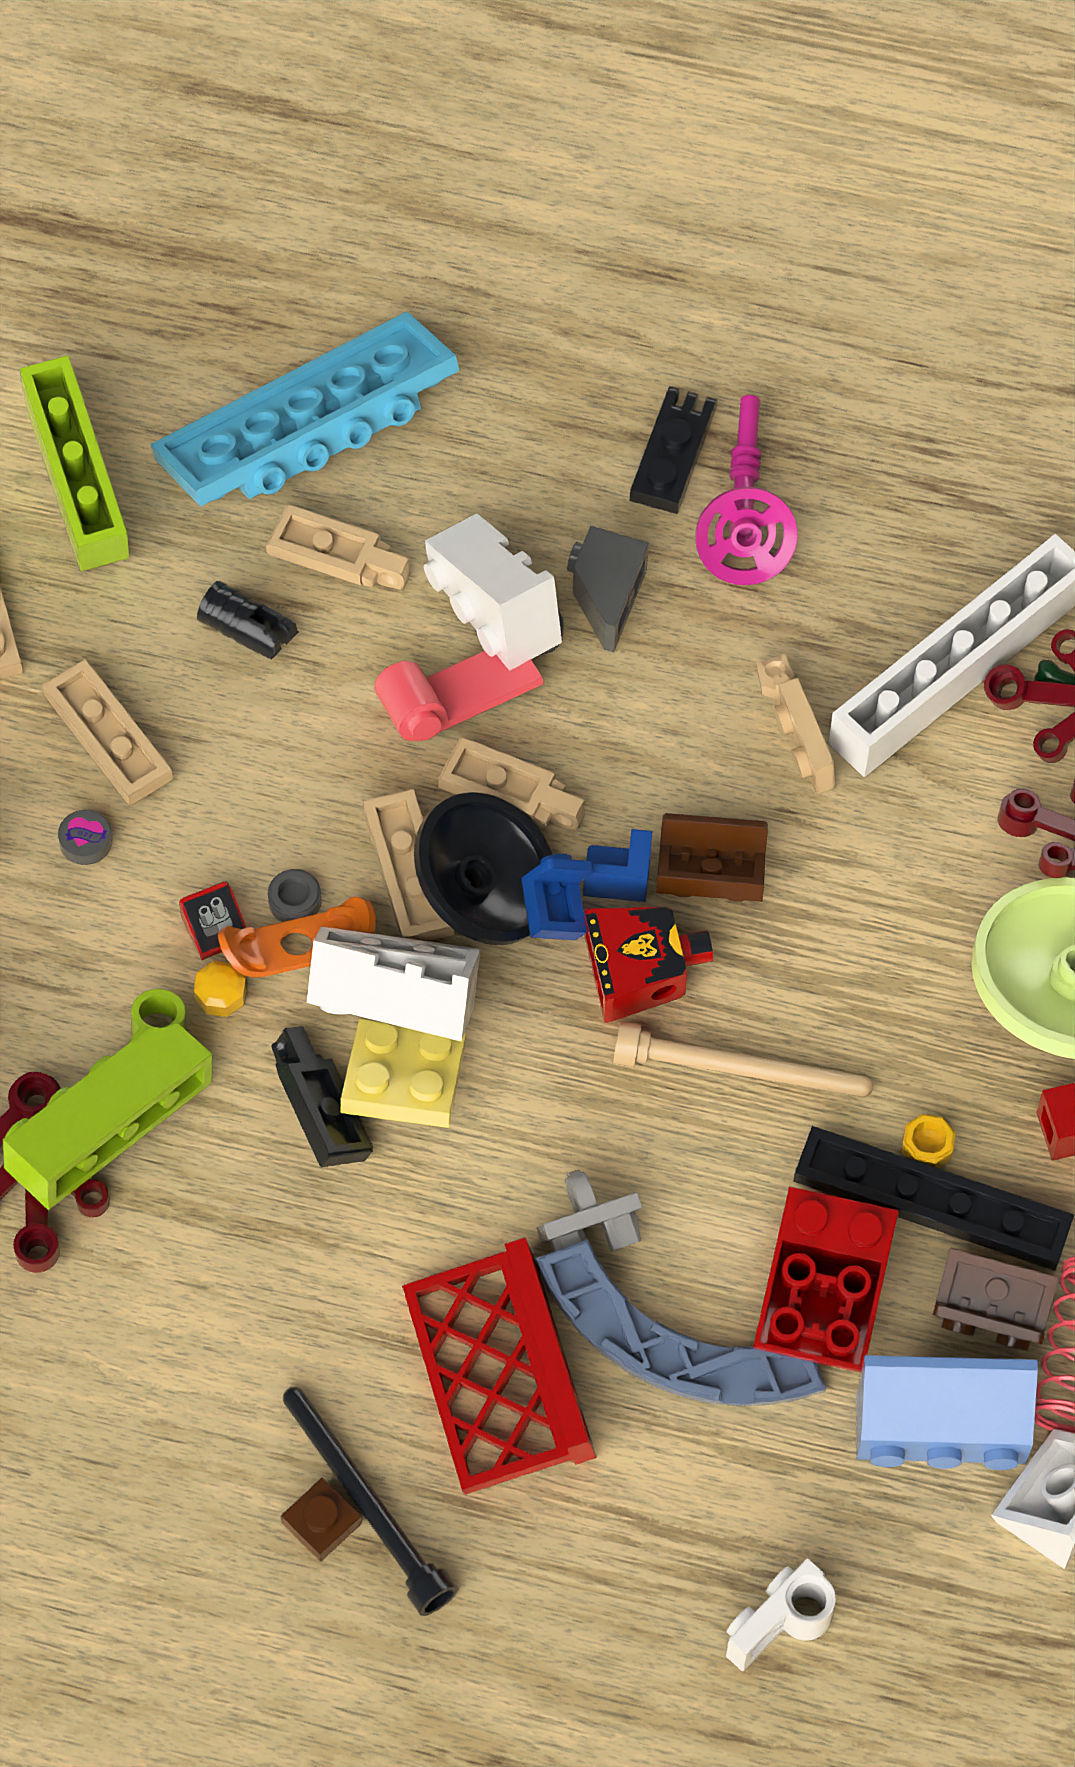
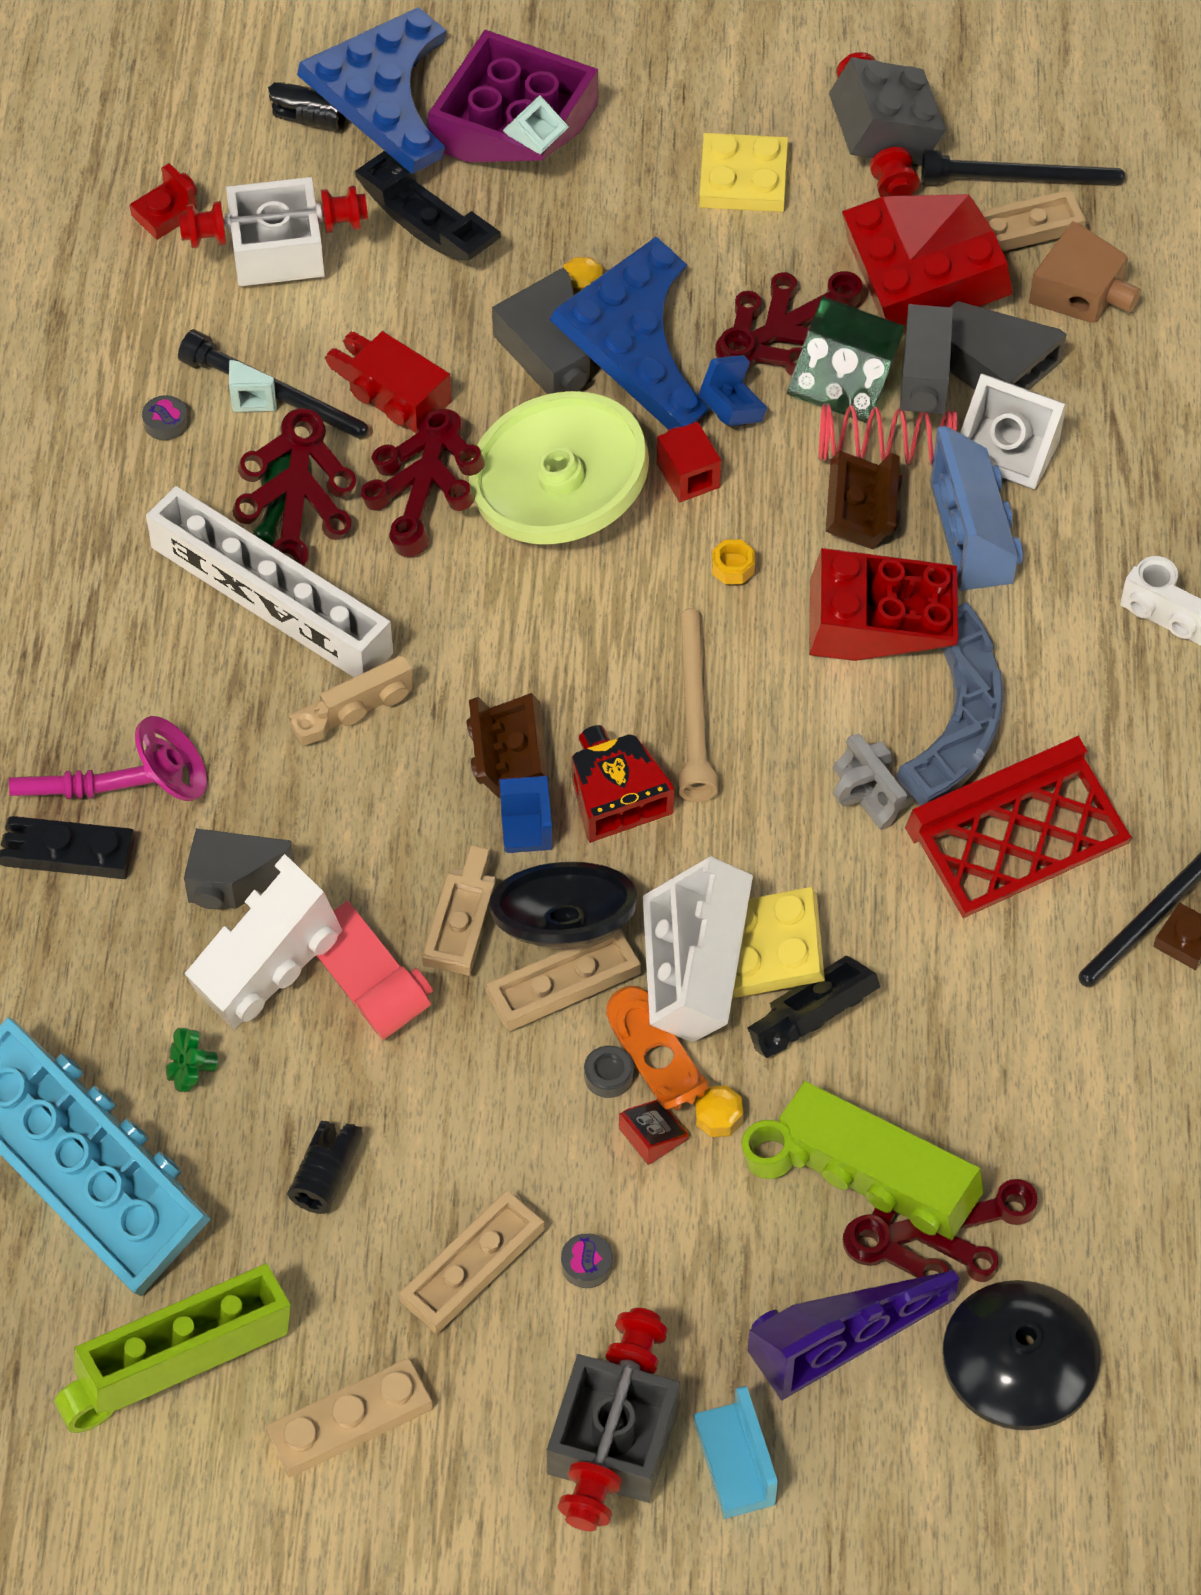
camera: 100 degrees left, 5 degrees down
(336, 549) = (228, 1105): tan hinge -> none
(392, 521) = (188, 1059): none -> green plant
(555, 897) = (579, 849): blue bracket -> none
(934, 1198) = (782, 553): black plate -> none

